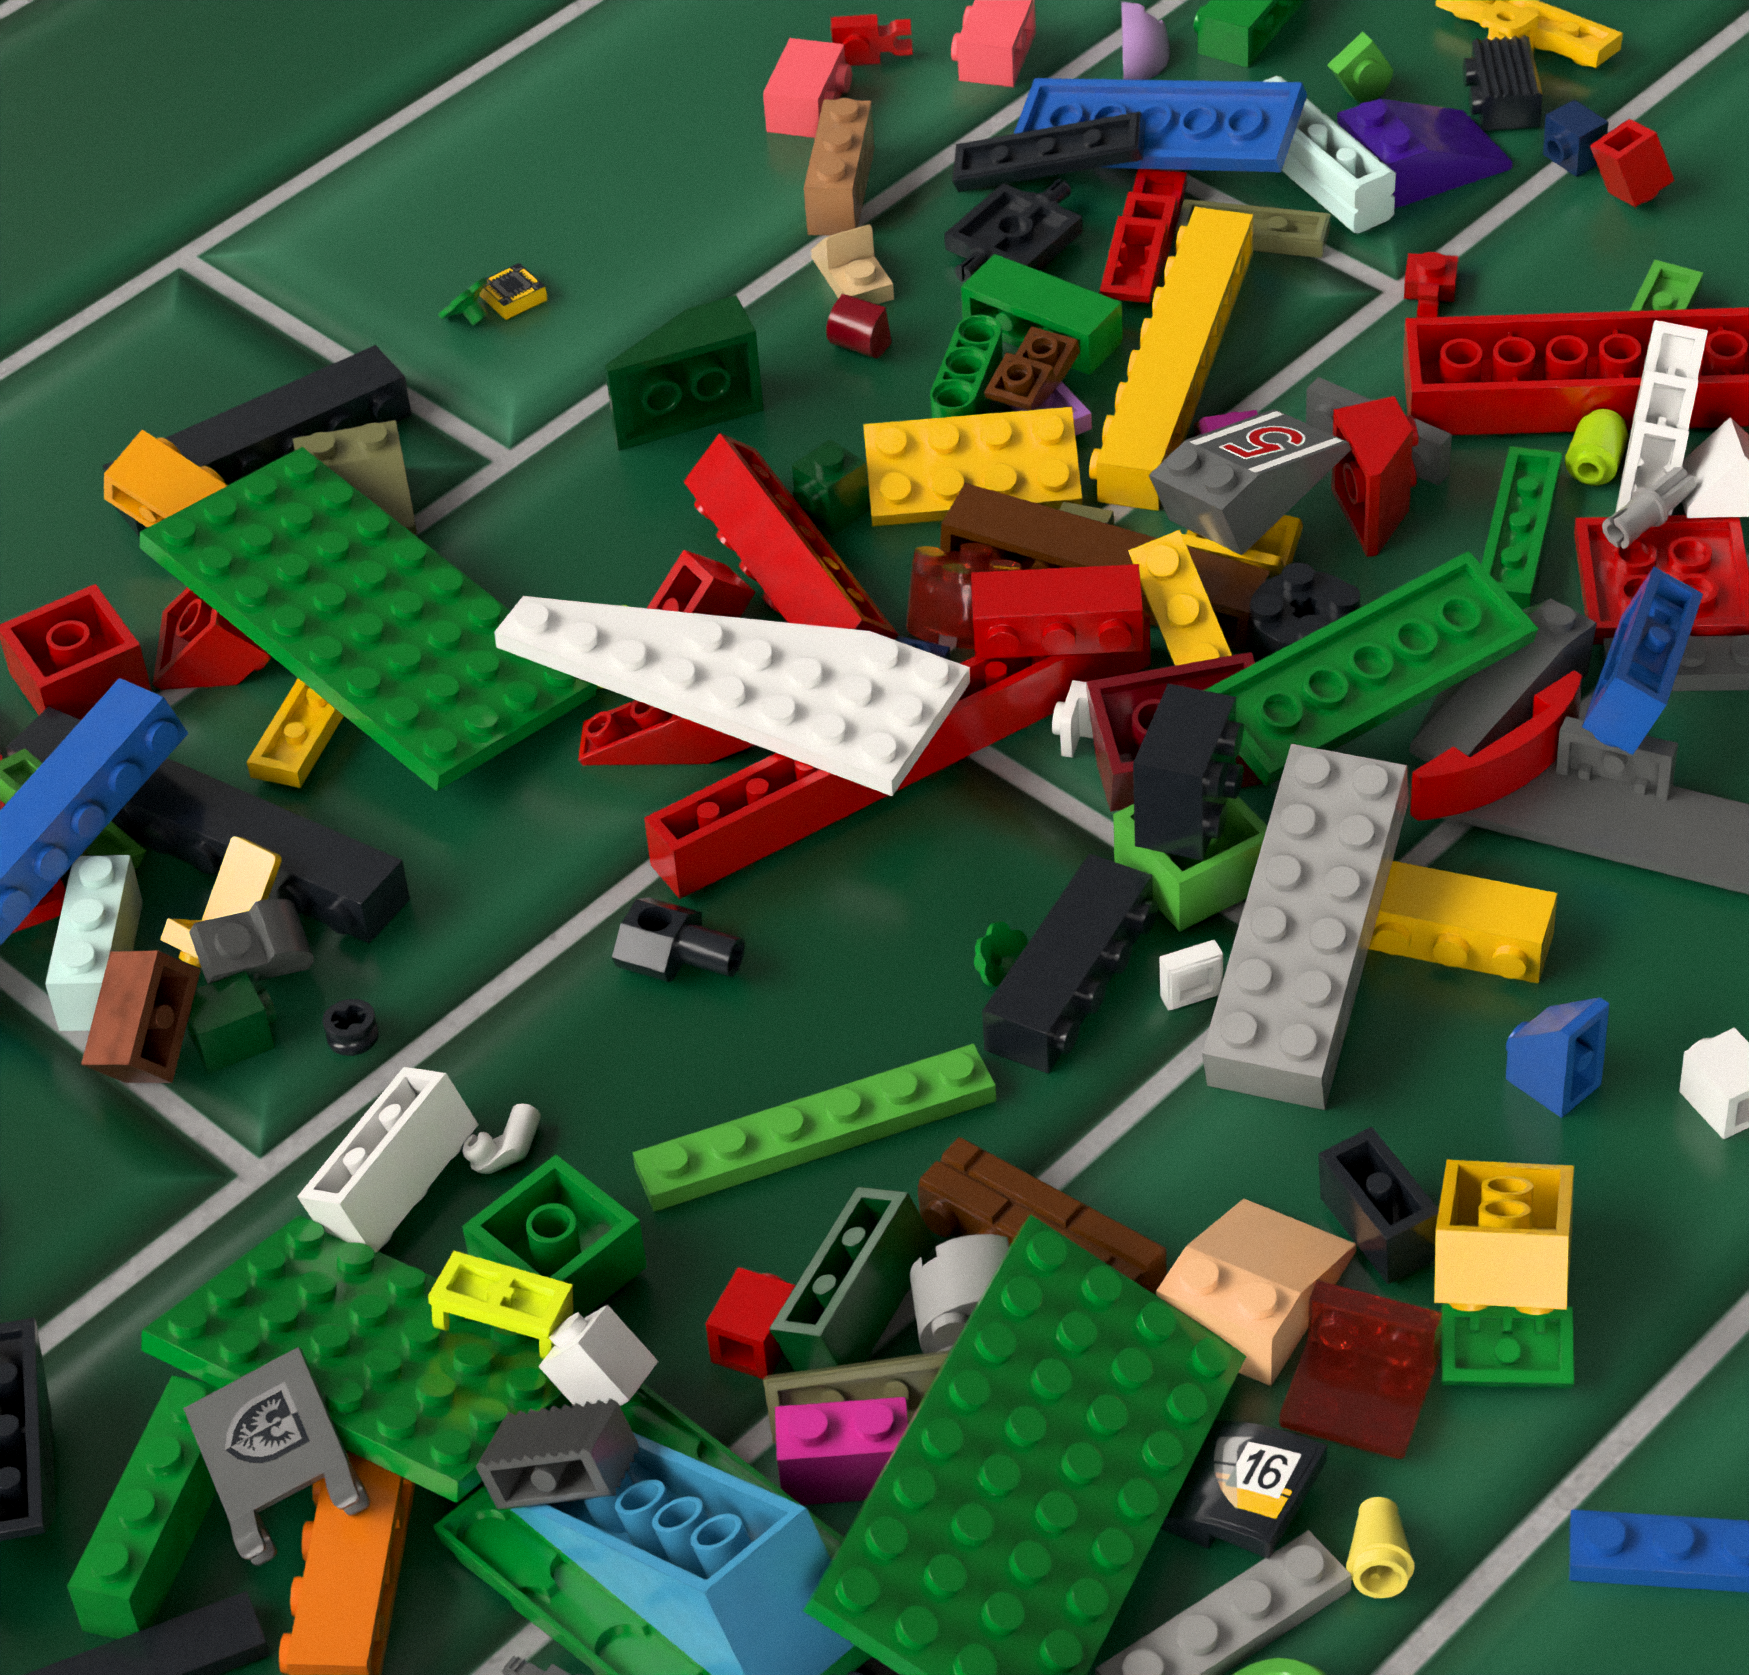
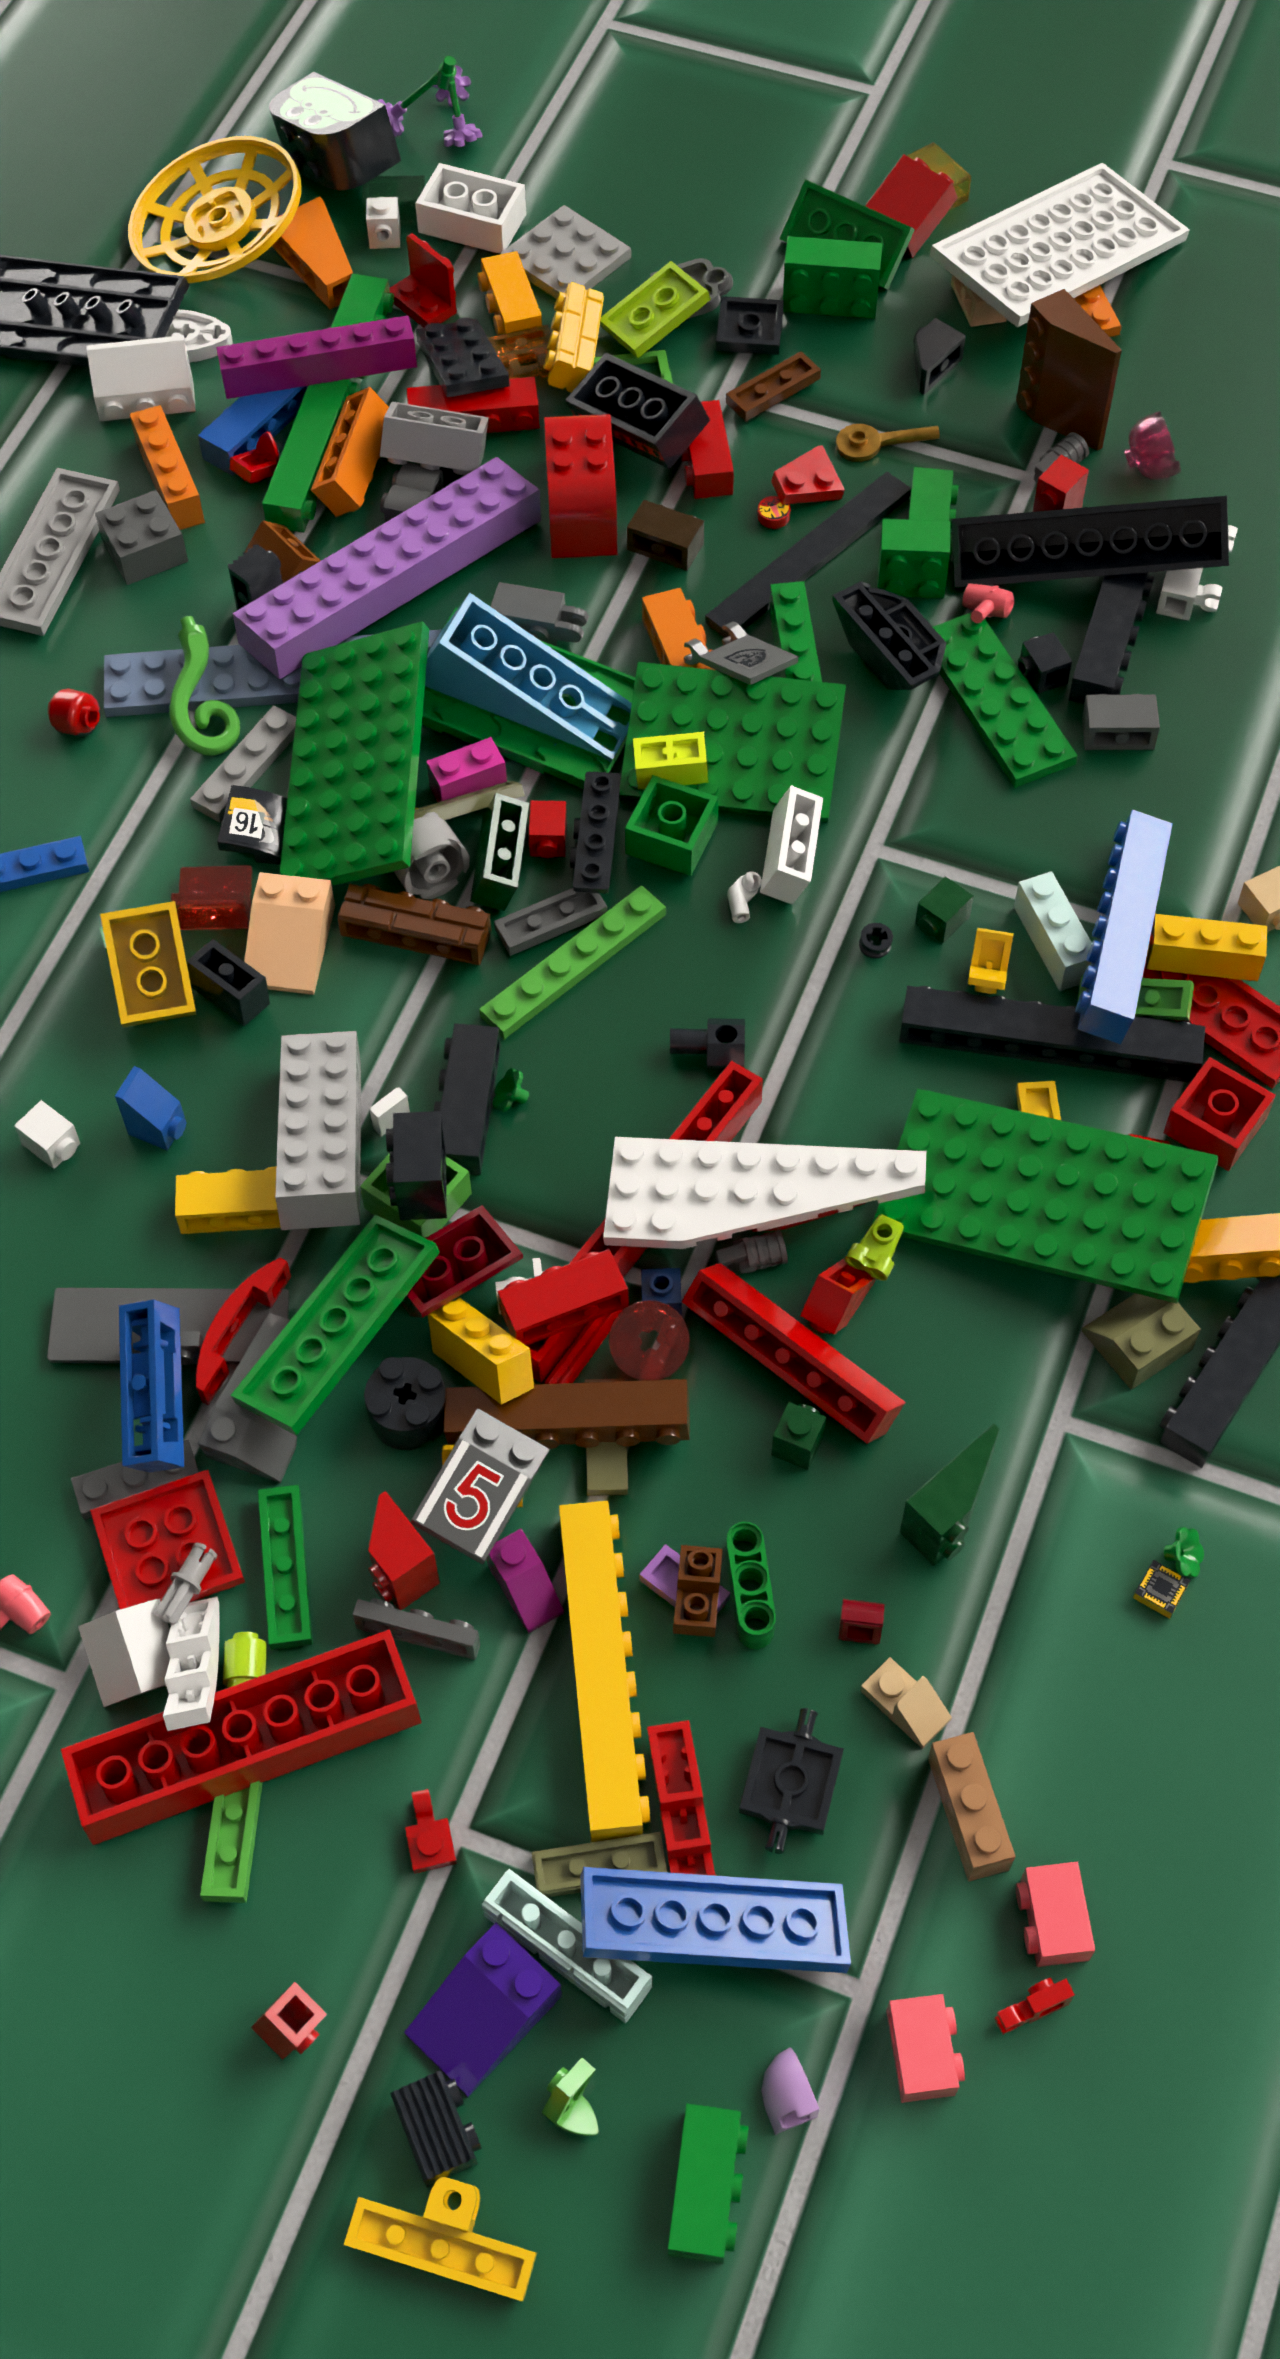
camera: 155 degrees right, 15 degrees up
(141, 1017) = (984, 873): copper brick -> none
(260, 941) = (947, 950): dark grey brick -> none
(558, 1455) = (597, 693): dark grey brick -> none
(597, 1359) = (605, 750): white brick -> none
(692, 1254) = (595, 833): none -> black bracket
(810, 1185) = (548, 919): none -> dark grey plate
(923, 463) = (706, 1494): yellow plate -> none
(1029, 298) = (724, 1682): green brick -> none
(1049, 151) = (797, 1873): black tile -> none
(1379, 1550) = (179, 814): light yellow cone -> none
(1570, 134) = (352, 2062): dark blue plate -> none

